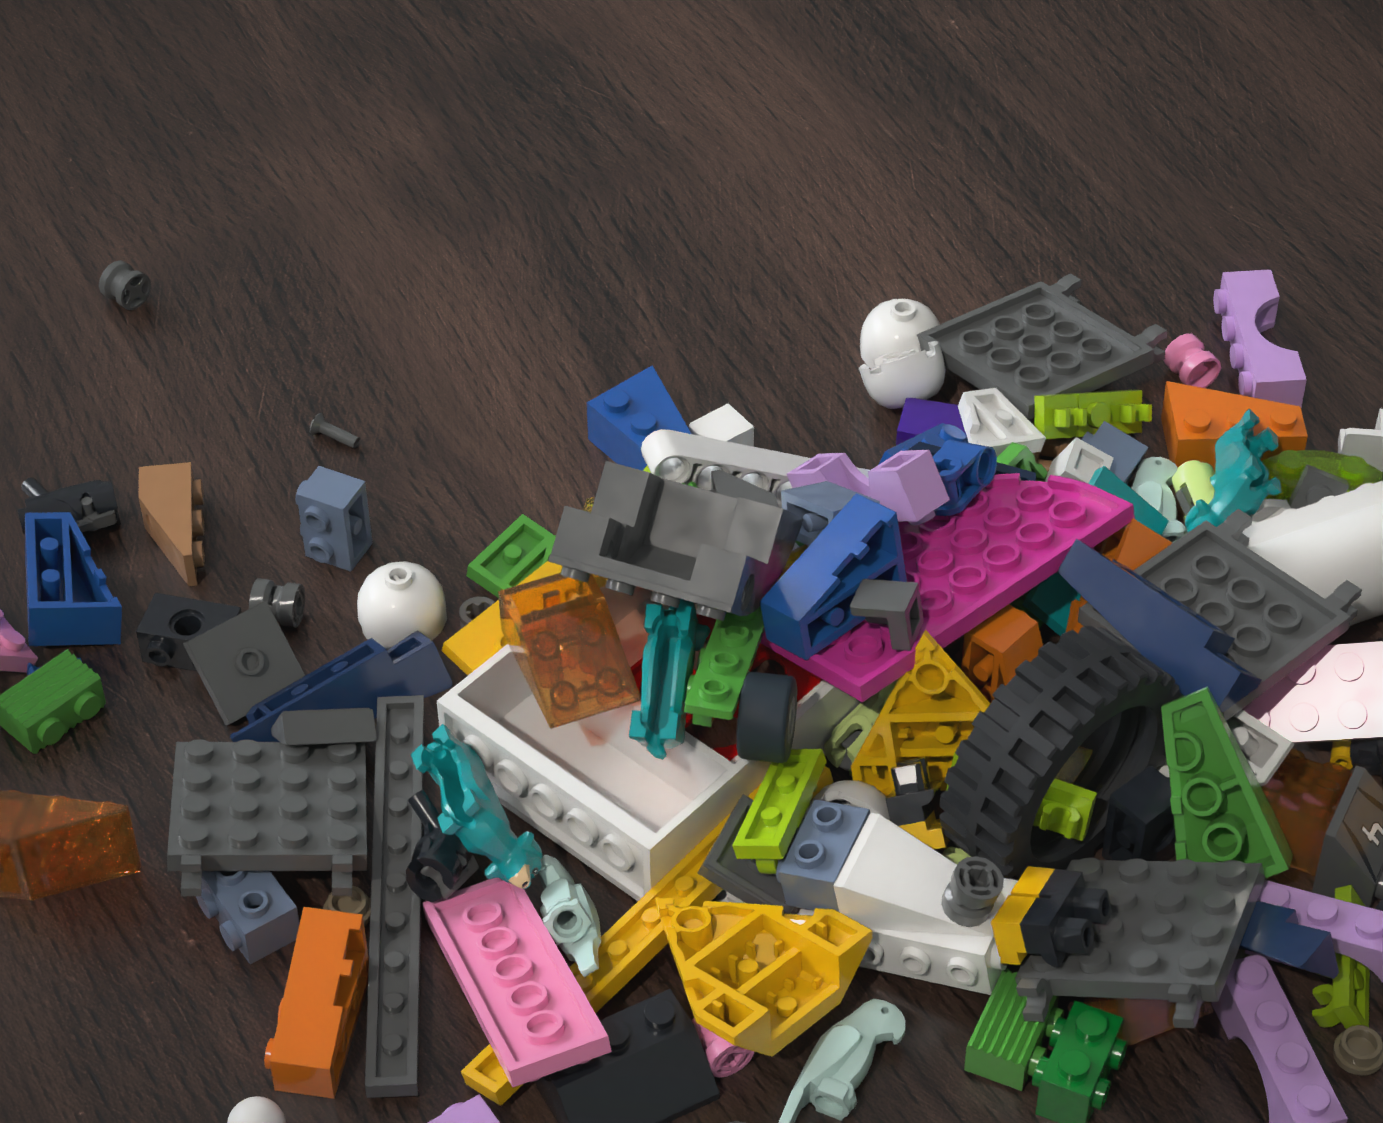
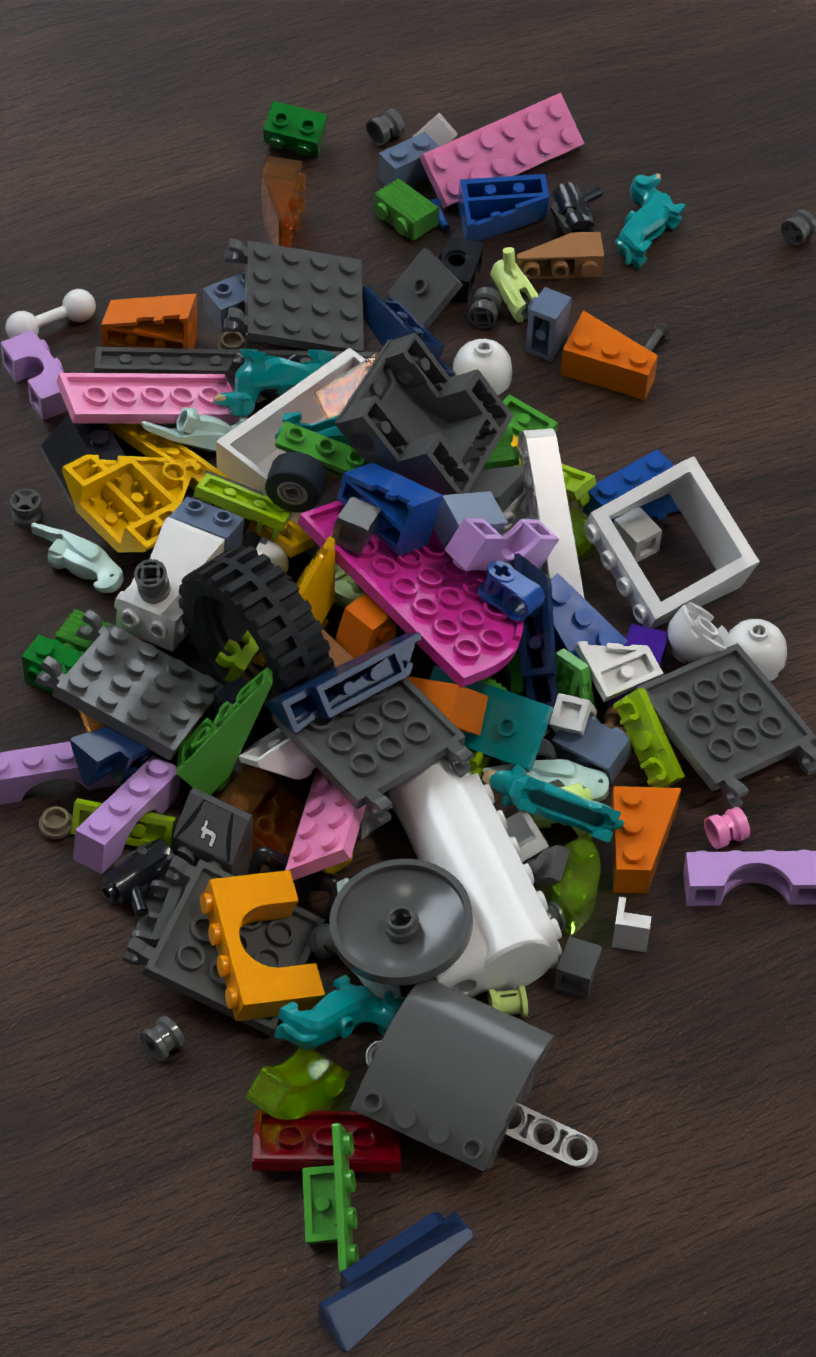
camera: 90 degrees right, 5 degrees up
(99, 428) = (649, 221): none -> teal animal
(238, 565) = (513, 285): none -> yellowish green piece
(325, 726) = (364, 323): dark grey slope -> none
(396, 462) = (608, 359): none -> orange wedge
(760, 337) = (707, 520): none -> white windscreen
(1049, 916) = (140, 629): black hips -> none

